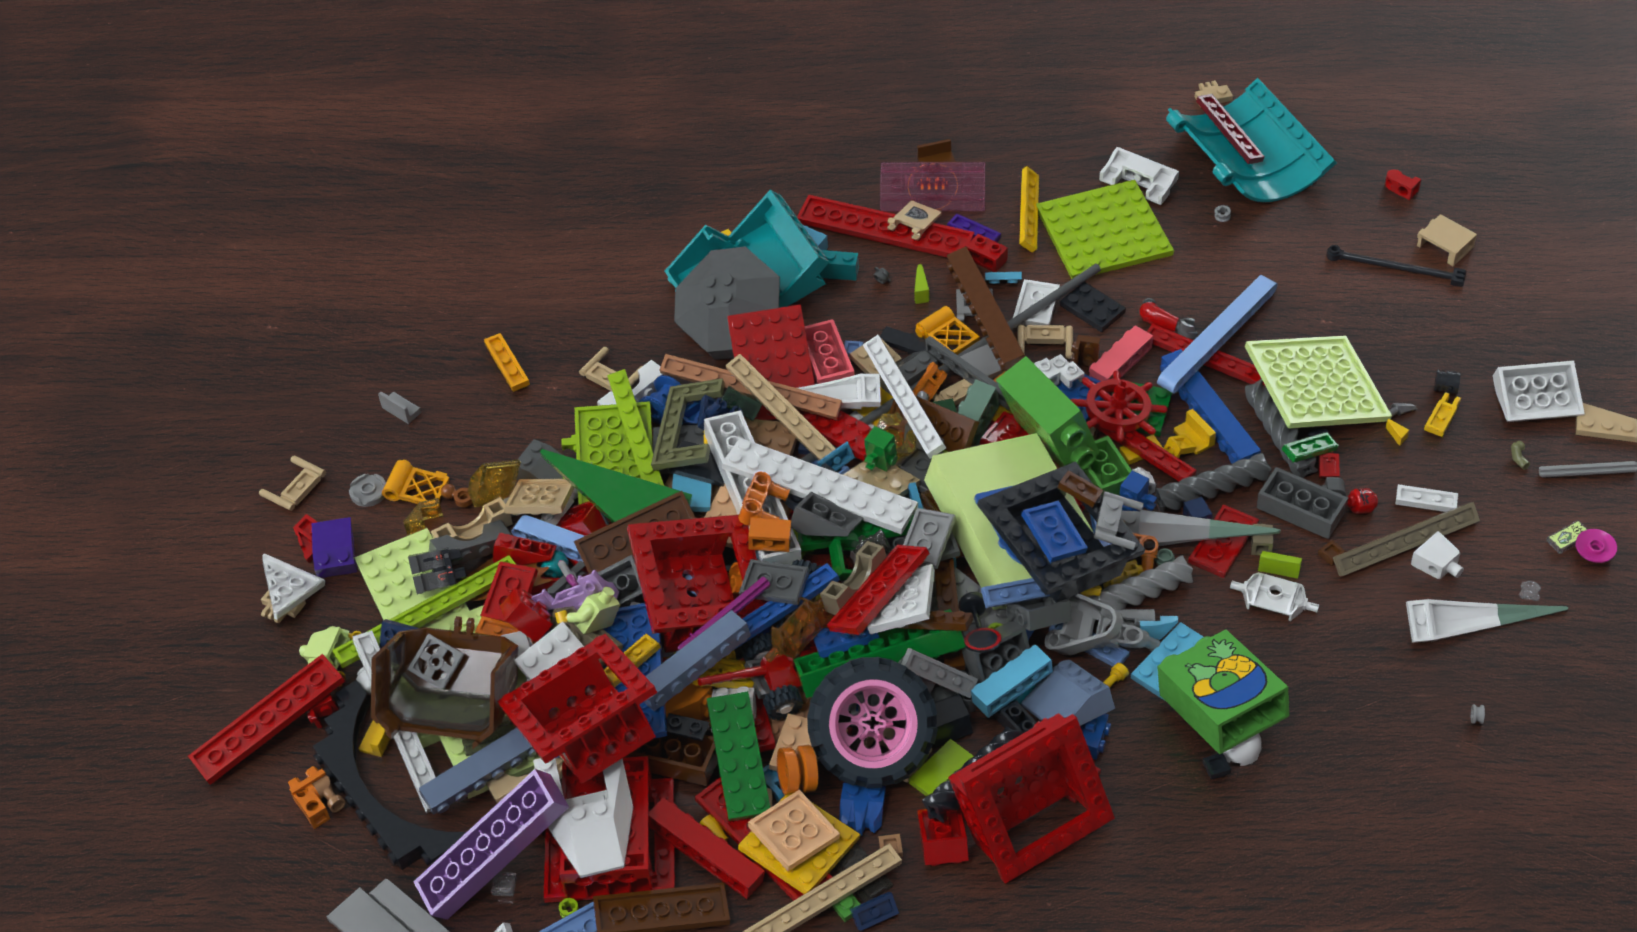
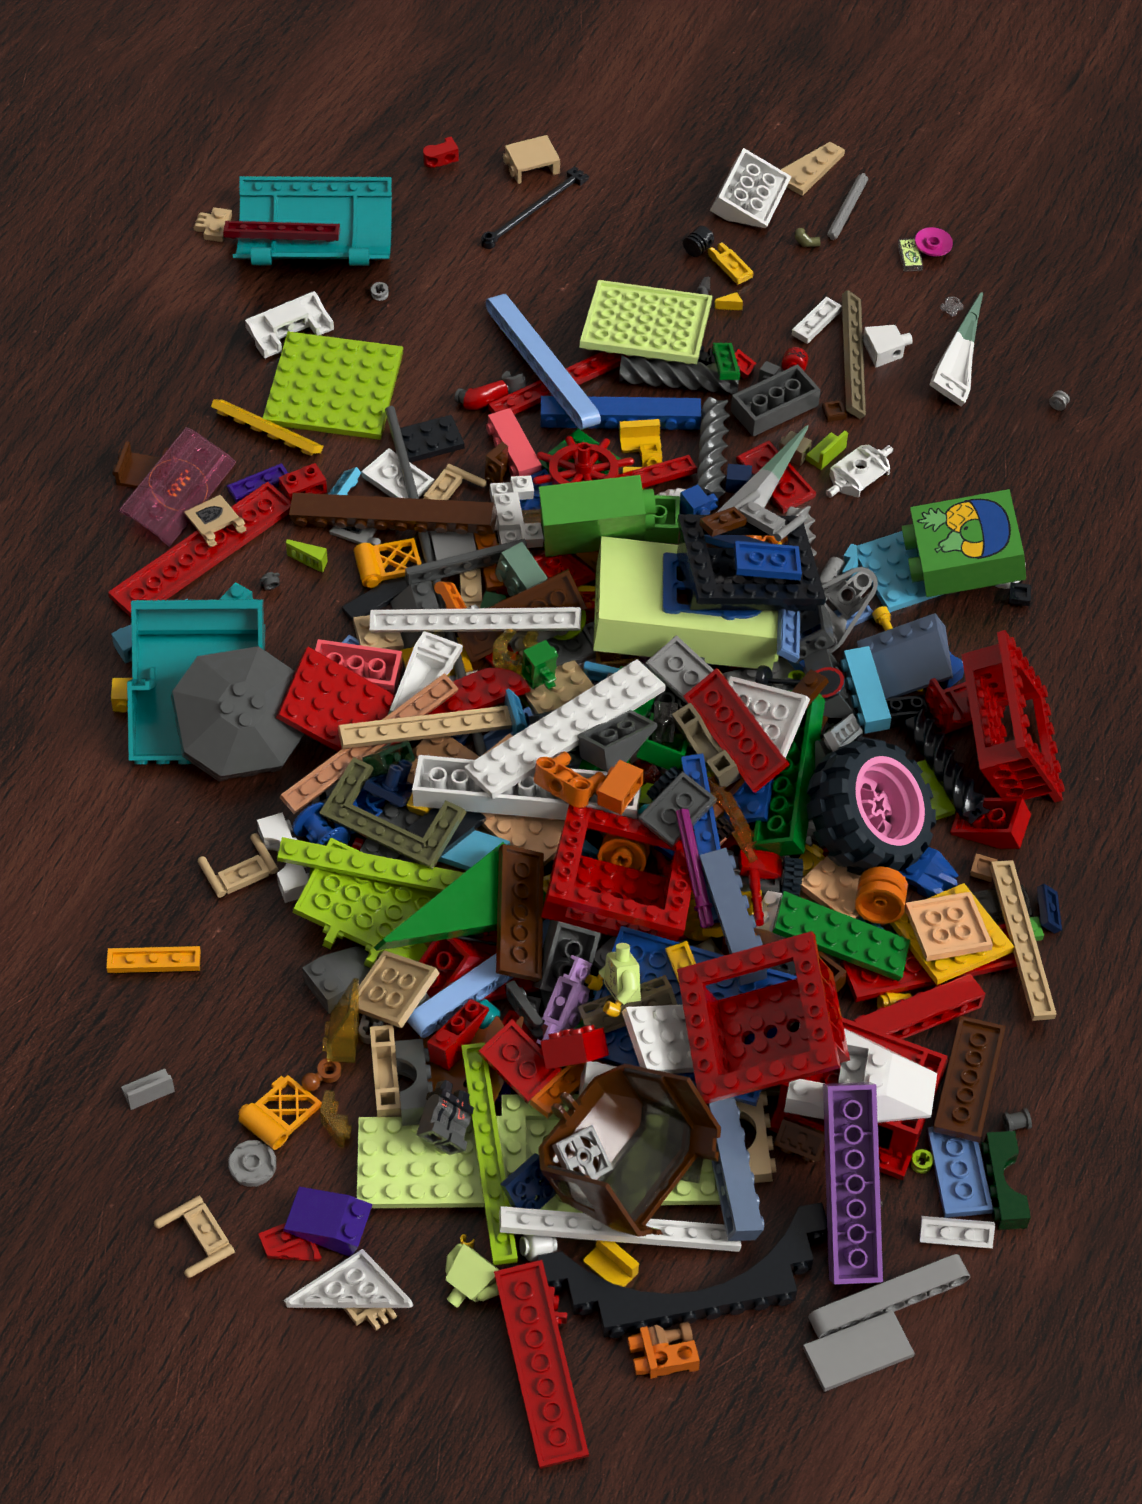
camera: 70 degrees left, 5 degrees up
(569, 575) = (526, 997): piece -> none

